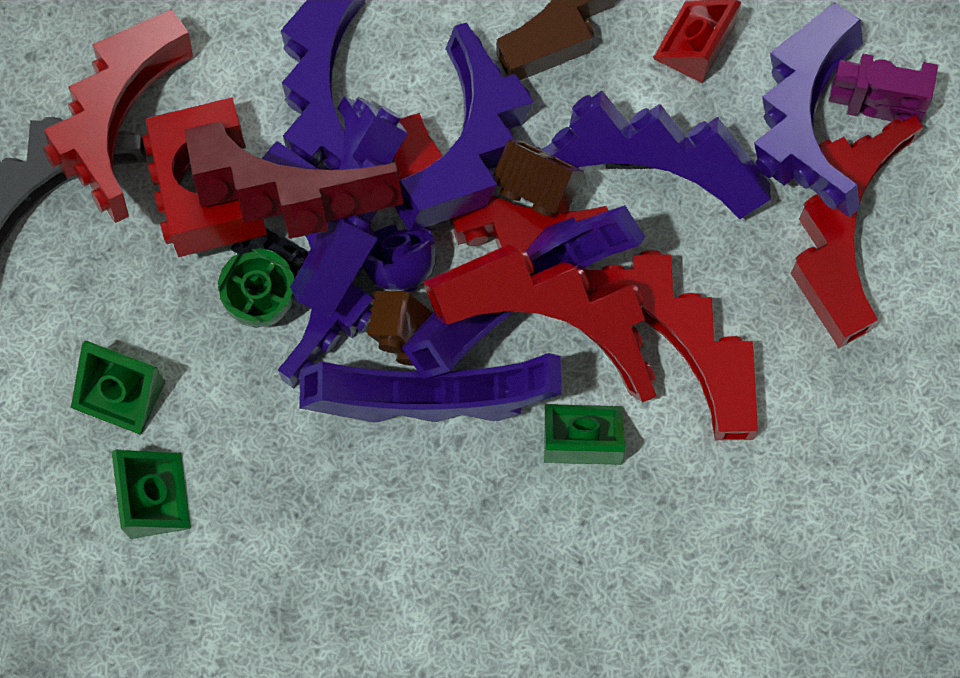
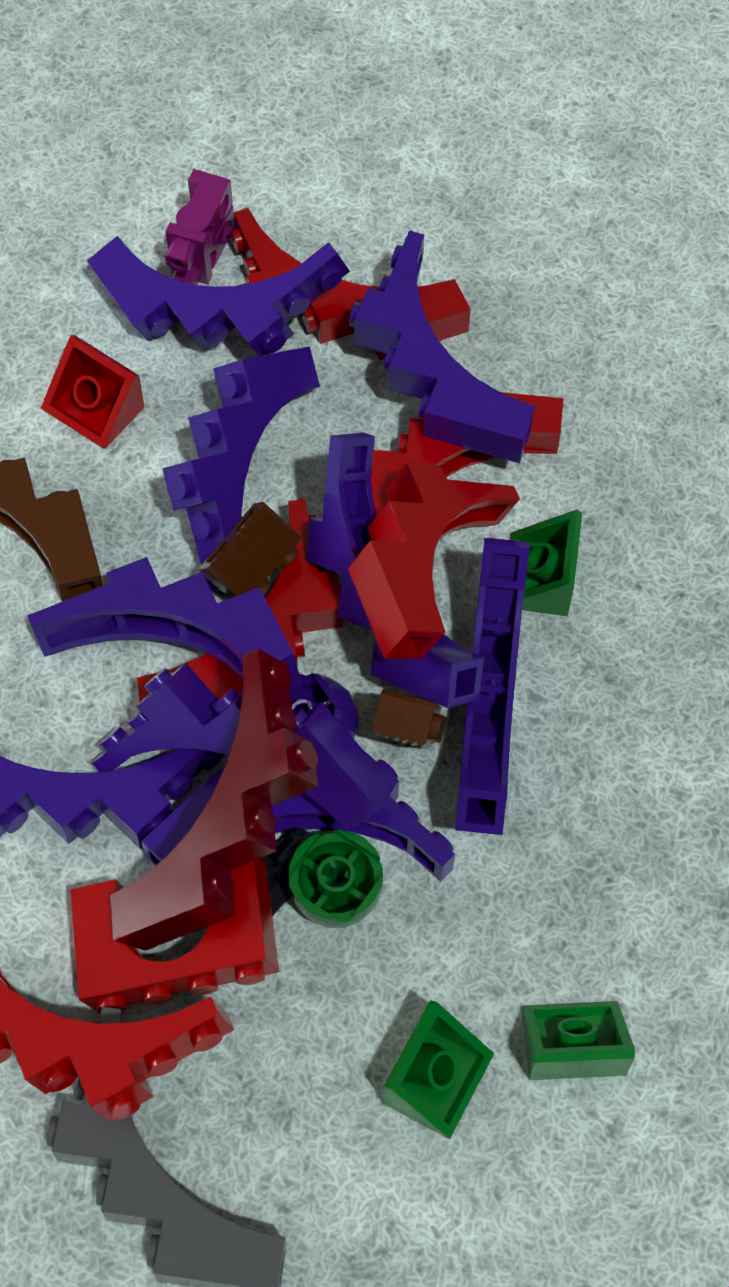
camera: 85 degrees left, 10 degrees down
(762, 291) = (453, 401): none -> dark purple arch

